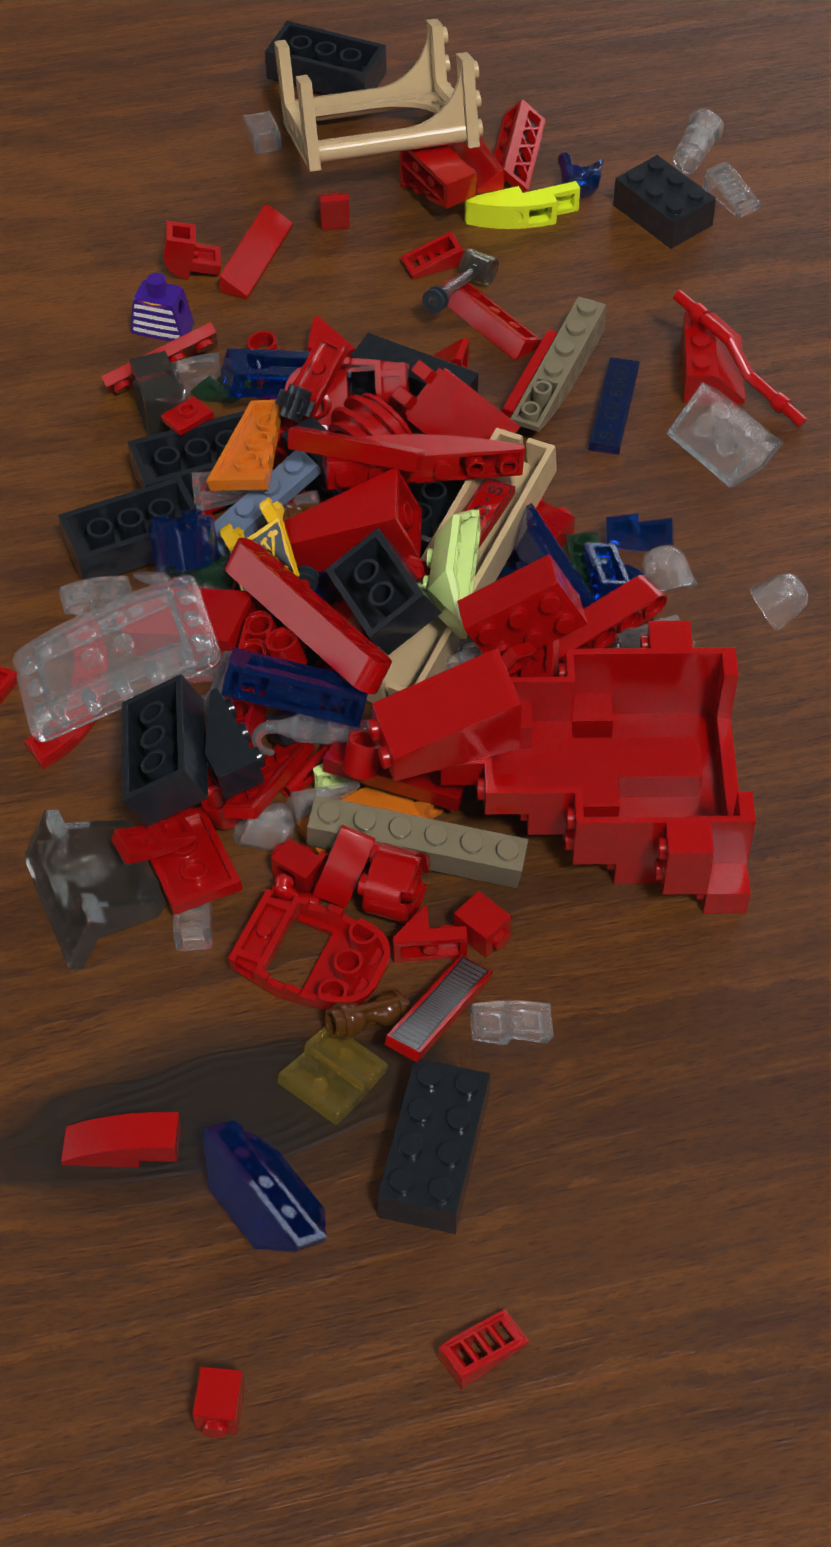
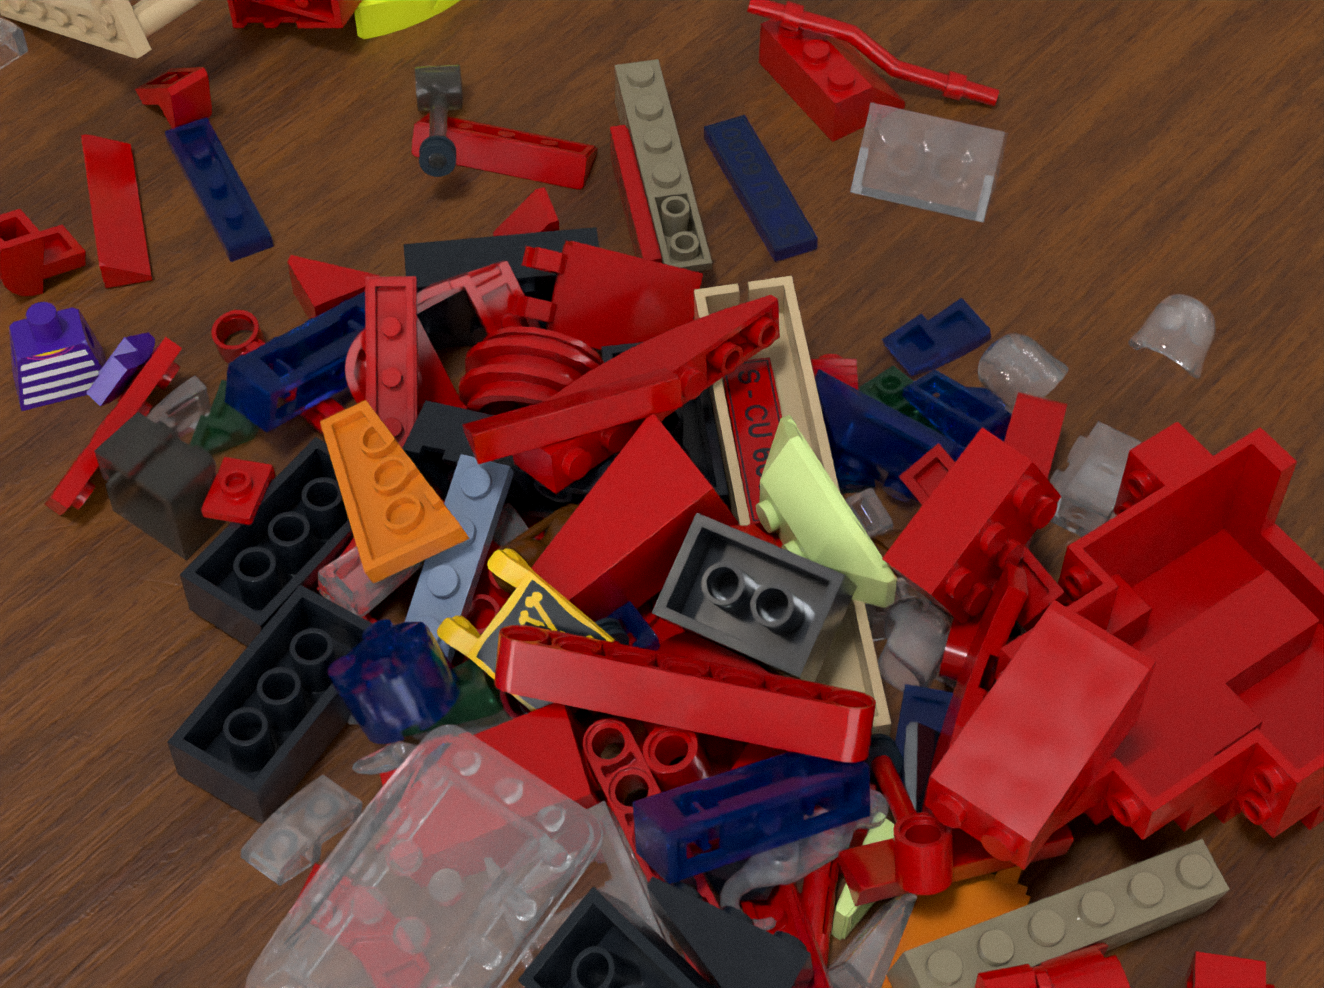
camera: 35 degrees left, 0 degrees up
(180, 327) = (121, 368): none -> dark purple slope
(295, 402) = (398, 393): black gear -> none
(318, 268) = (219, 189): none -> clear blue tile
(445, 246) = (369, 74): red slope -> none

